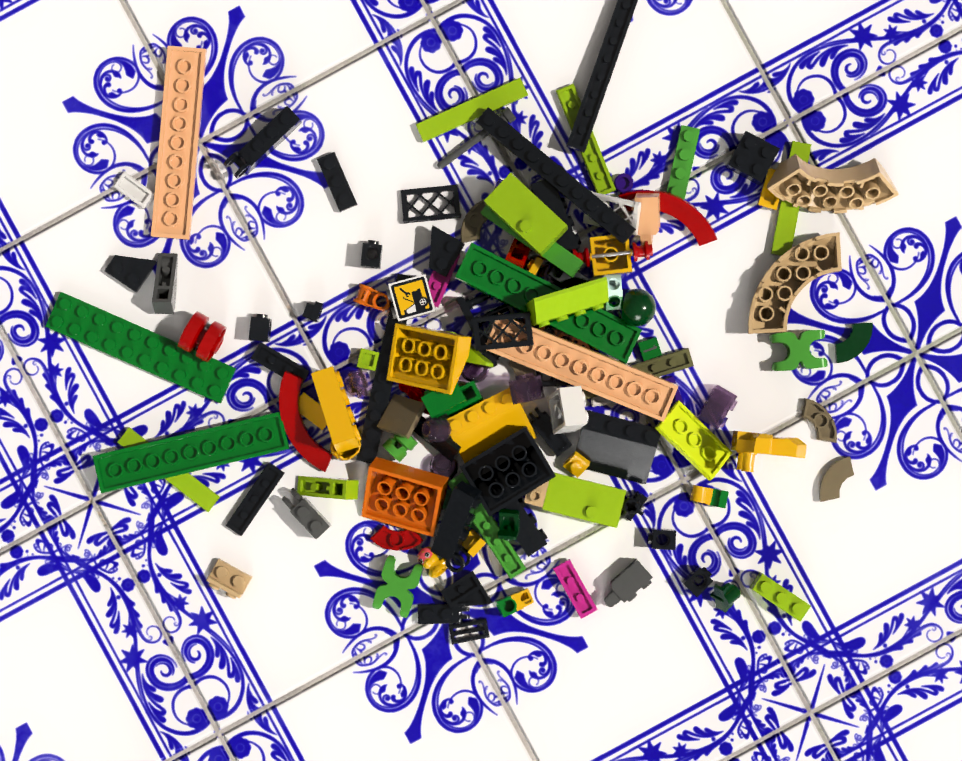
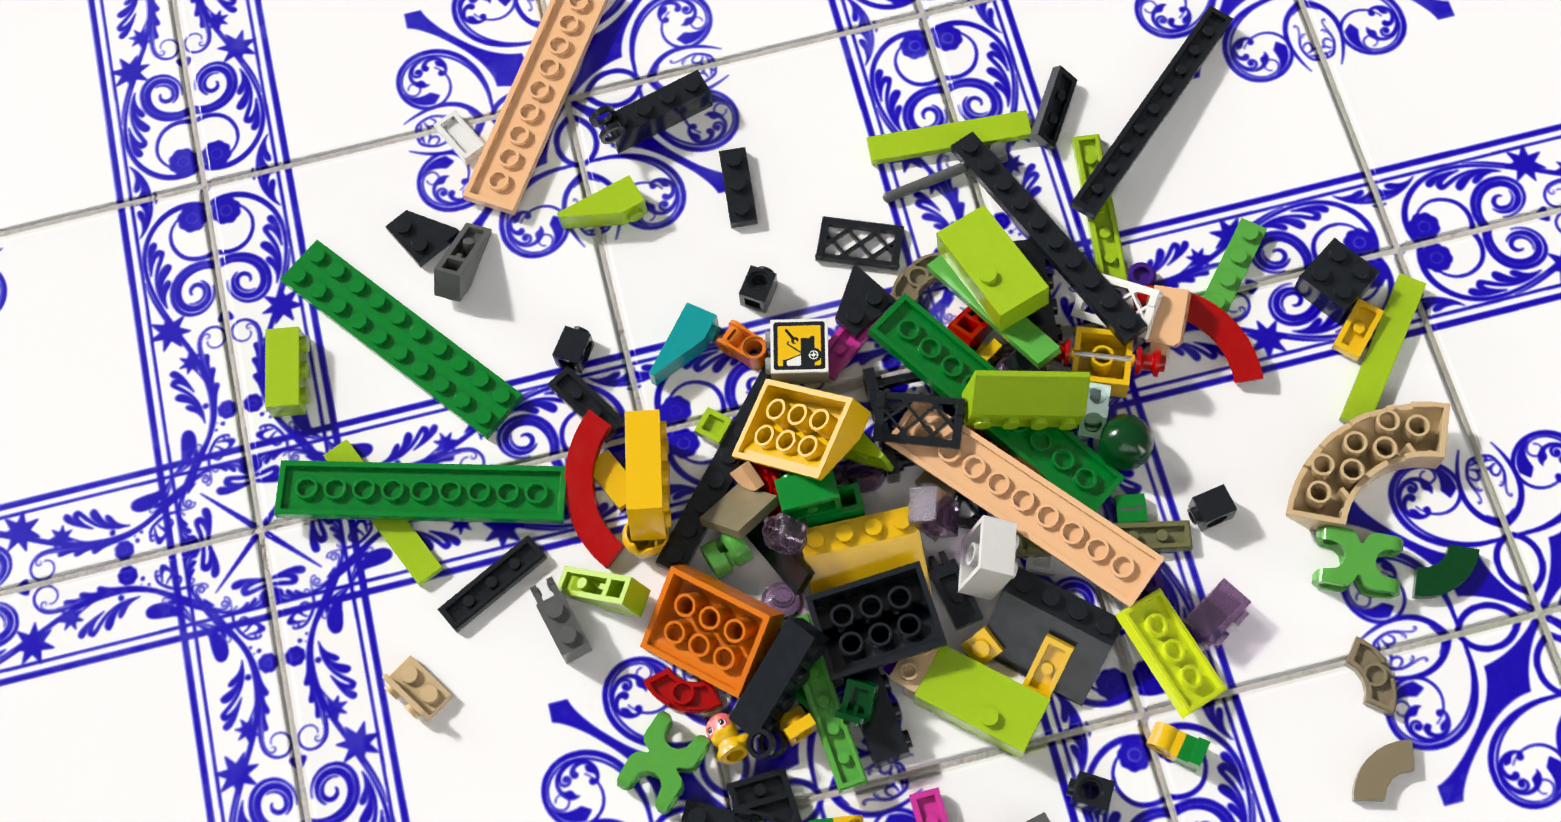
camera: 25 degrees right, 20 degrees down
(73, 391) = (286, 371): none -> lime brick
(208, 339) = (488, 335): red wheel -> none
(255, 218) = (607, 207): none -> lime slope
(313, 311) = (652, 342): black piece -> none
(334, 302) = (686, 341): none -> teal slope
(358, 383) = (690, 453): clear purple head -> none
(400, 391) = (747, 477): none -> light nougat tile
(538, 71) = (1053, 107): none -> black plate
(620, 469) = (1048, 665): none -> yellow plate
(632, 505) = (1055, 731): black piece -> none
(700, 337) = (1211, 508): none -> black brick
(749, 444) = (1284, 679): yellow brick -> none
(831, 189) = (1446, 348): tan brick -> none

